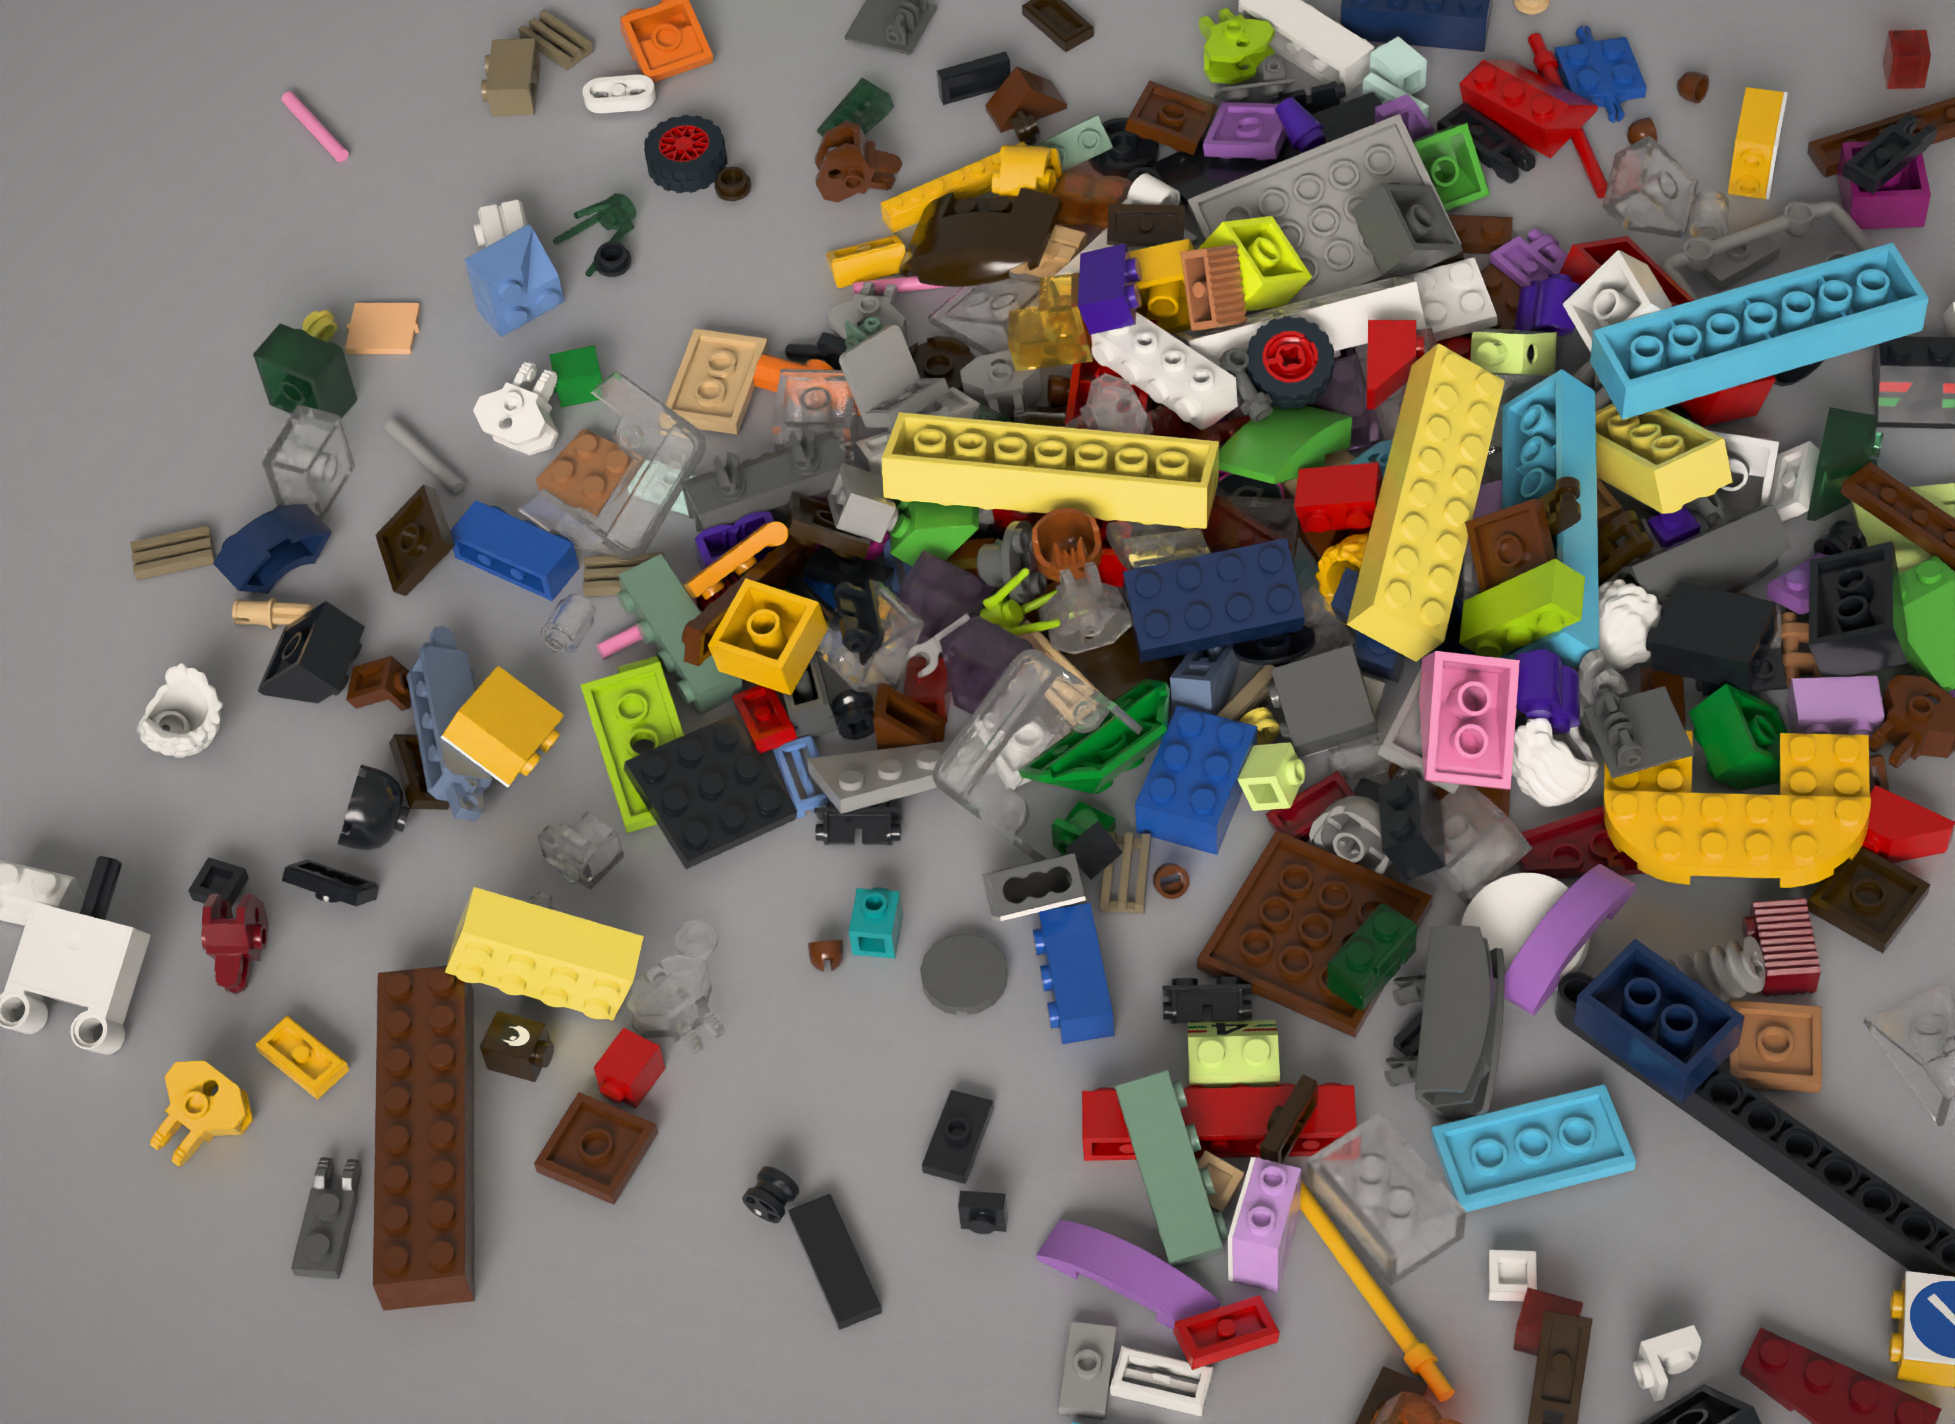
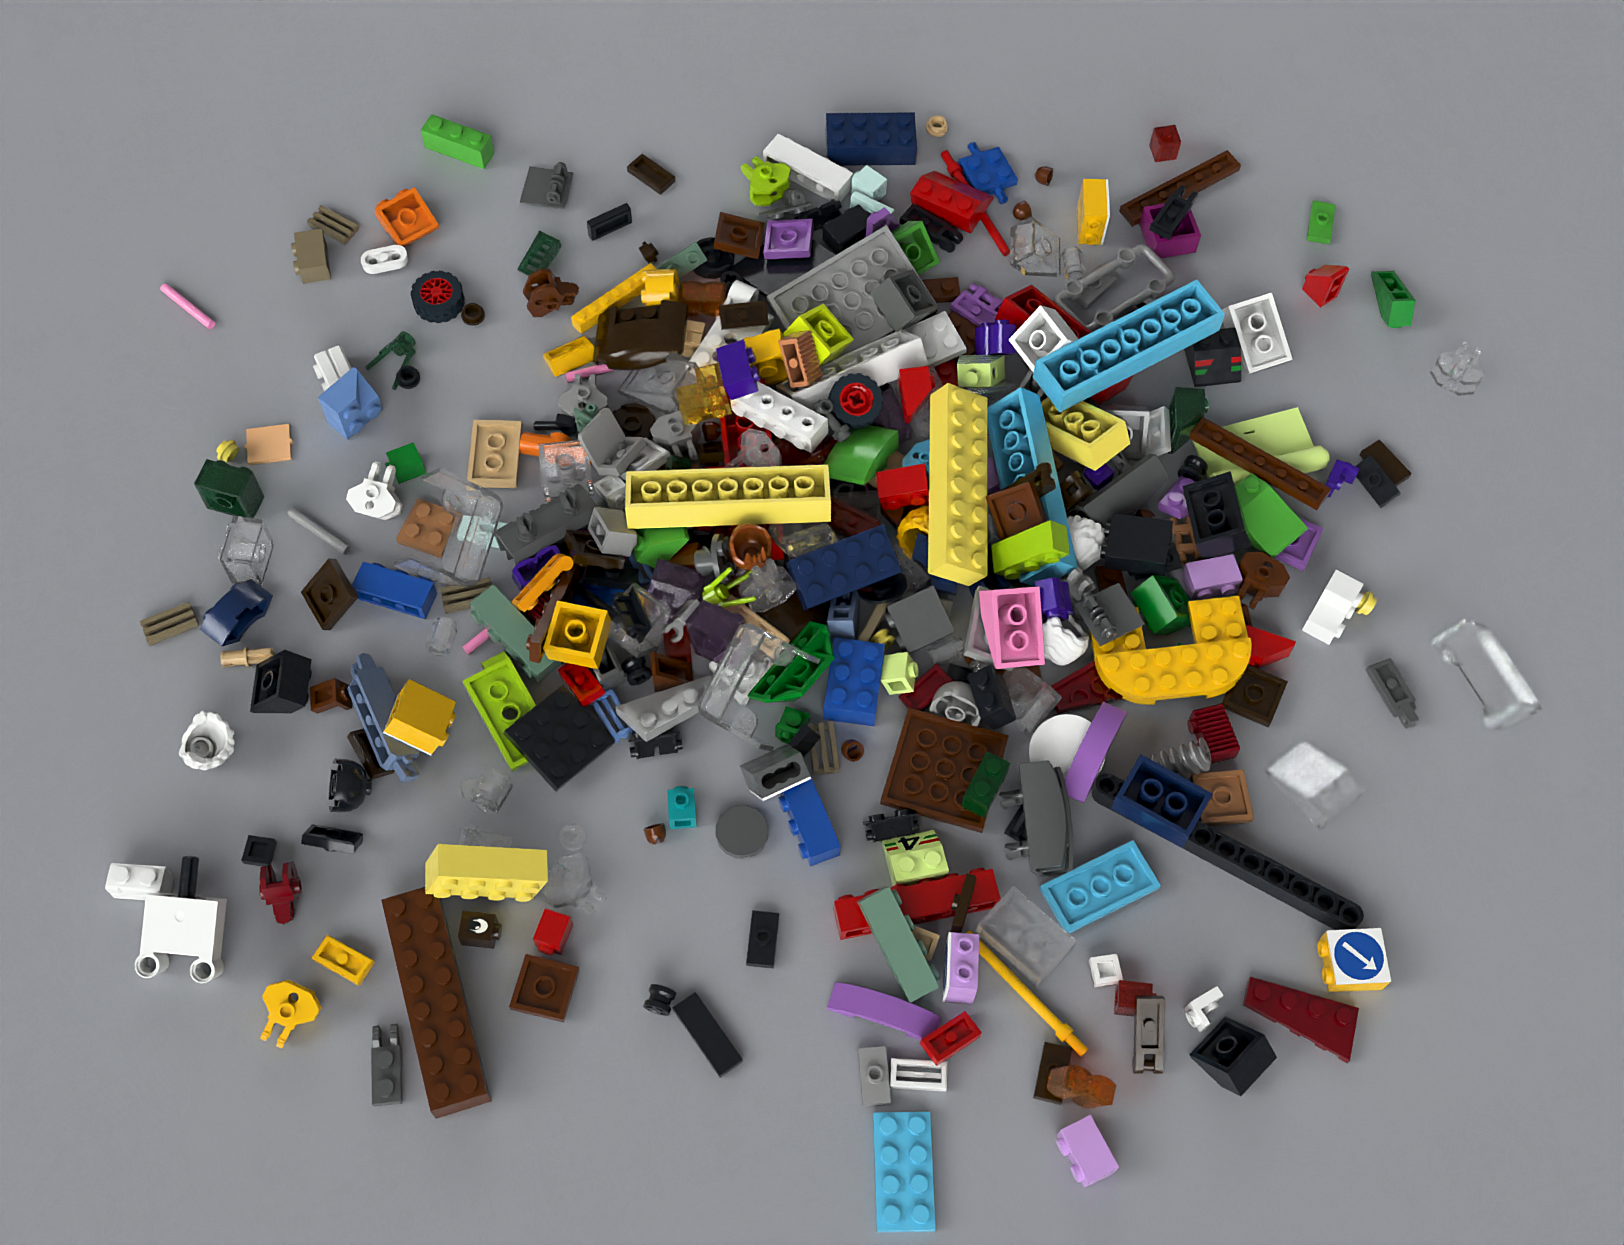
camera: 20 degrees left, 10 degrees up
(983, 1211) = (790, 988): black plate -> none
(1024, 92) = (642, 229): reddish brown slope -> none
(1300, 126) = (821, 234): dark purple cone -> none

